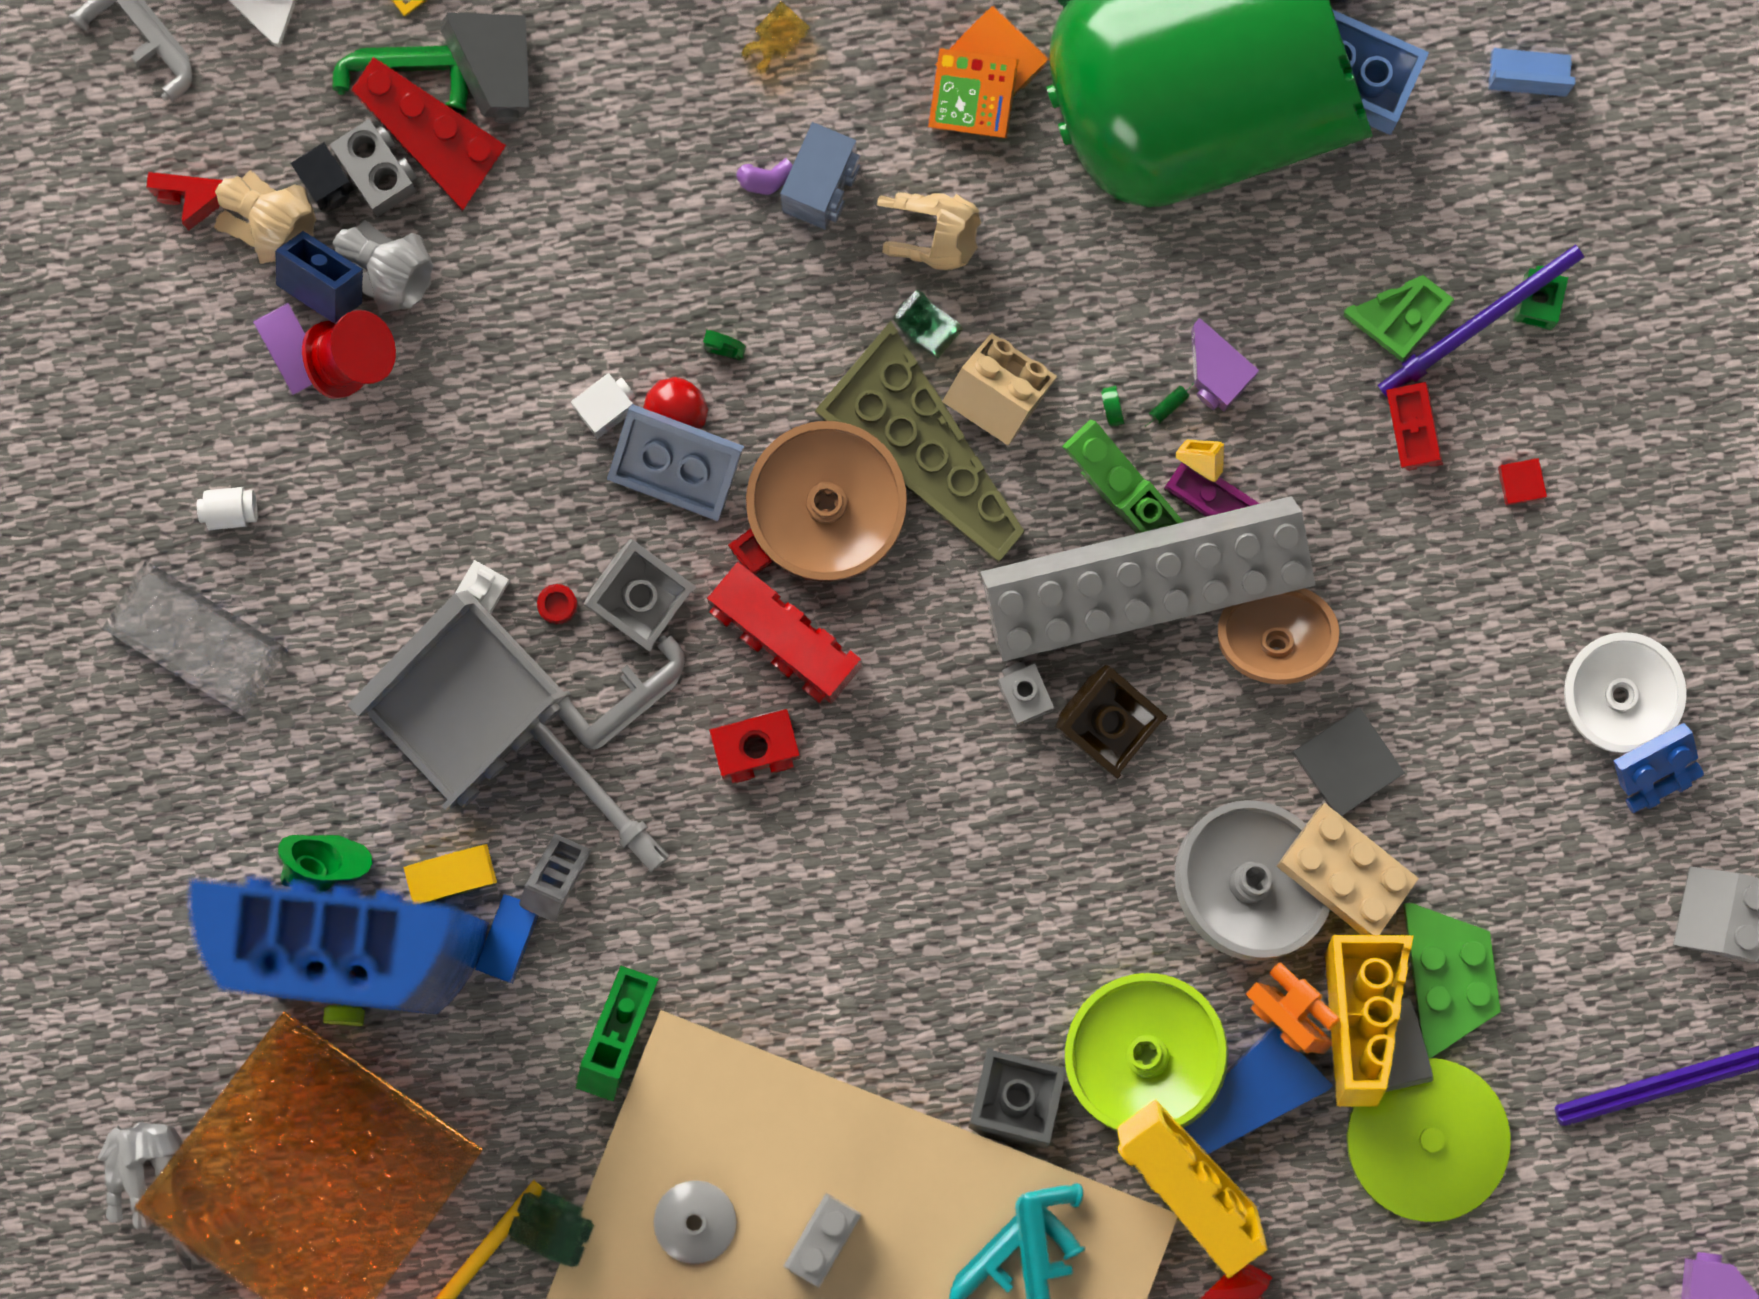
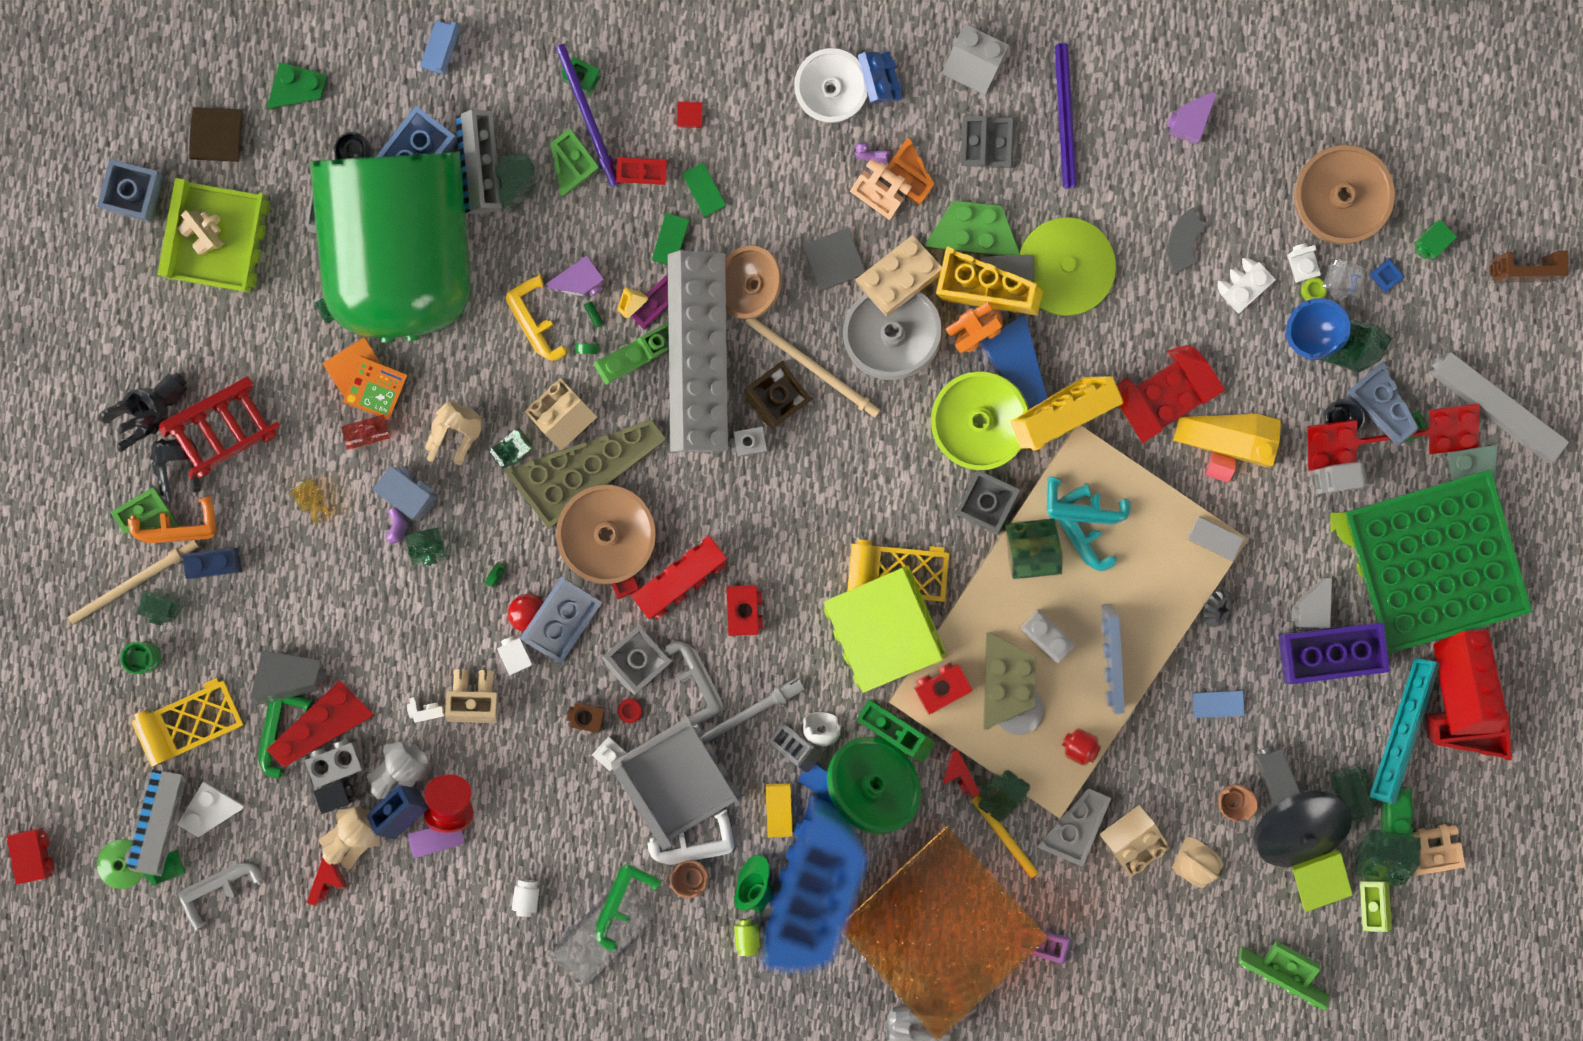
camera: 80 degrees left, 5 degrees up
(237, 866) = (747, 937): none -> lime brick
(253, 644) = (614, 899): none -> green piece
(314, 772) = (698, 879): none -> nougat hair
(357, 761) = (697, 851): none -> white piece
(486, 294) = (430, 711): none -> white bracket
(509, 356) = (472, 706): none -> tan brick
(521, 1015) = (874, 785): none -> green dish
(538, 554) = (597, 717): none -> reddish brown brick
(579, 1146) = (957, 767): none -> red slope
(606, 900) = (818, 719): none -> white hair
(677, 1080) = (957, 688): none -> red brick
(735, 1192) = (1008, 681): none -> olive wing
(742, 227) = (425, 547): none -> clear green brick
(775, 976) = (885, 629): none -> panel
(863, 925) = (866, 564): none -> yellow piece
(900, 95) = (365, 432): none -> clear red hips
(959, 1186) = (1034, 548): none -> clear green slope
(1130, 860) = (862, 402): none -> tan bar
(1131, 305) = (526, 321): none -> yellow piece
(1320, 495) = (670, 237): none -> green tile
(1350, 234) = (517, 180): none -> clear green slope
(1365, 170) = (478, 161): none -> light grey brick
(1408, 531) = (703, 190): none -> green tile
(1470, 806) = (877, 194): none -> light nougat plate
(1514, 850) = (910, 166): none -> orange wing
(1528, 783) = (863, 153): none -> medium lavender arm
(1598, 966) = (987, 142): none -> dark grey slope

